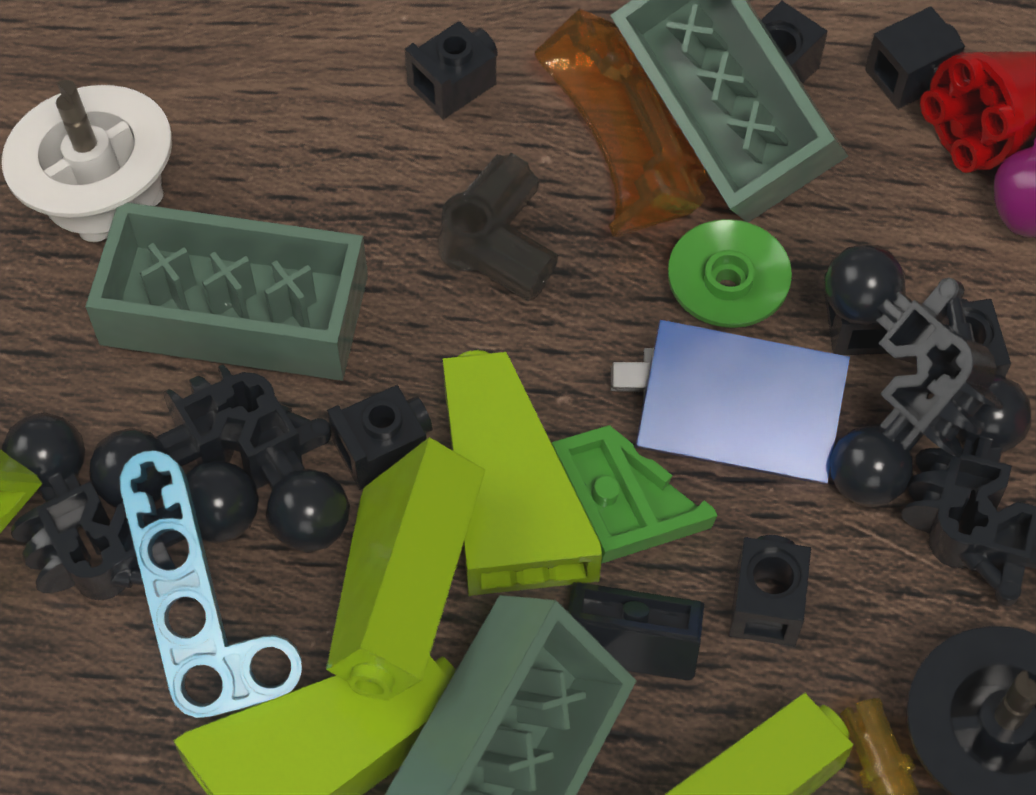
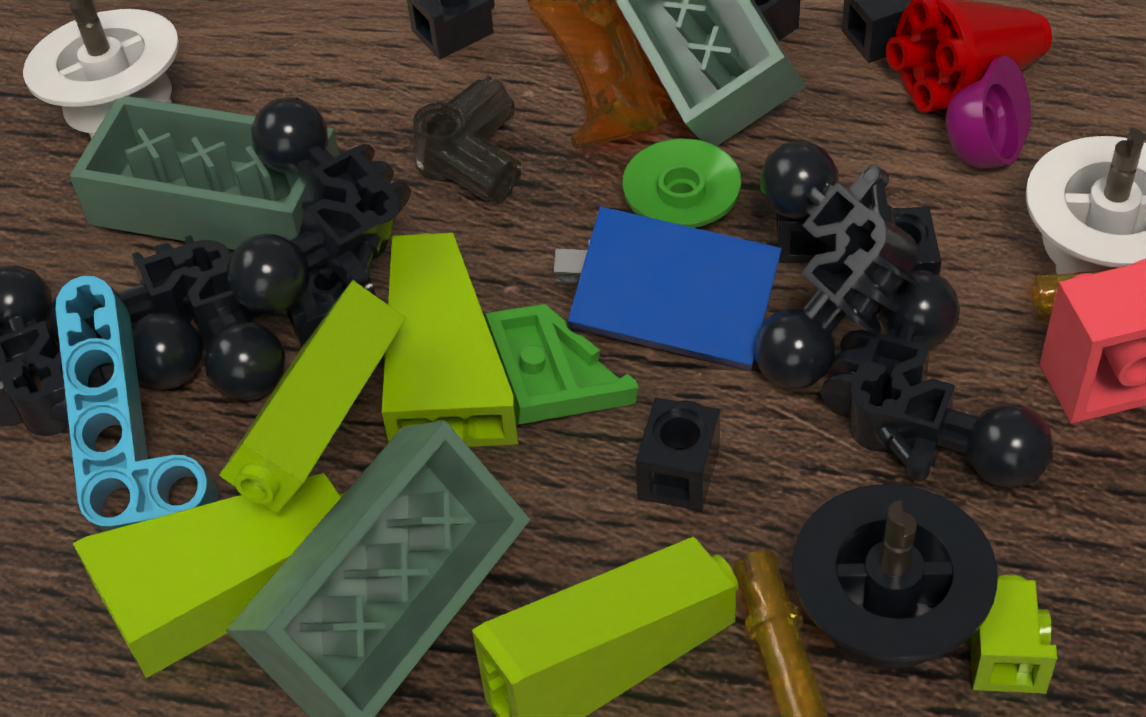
camera: 10 degrees right, 10 degrees down
(394, 324) = (345, 204): none -> black piece
(641, 629) = (553, 486): black slope -> none

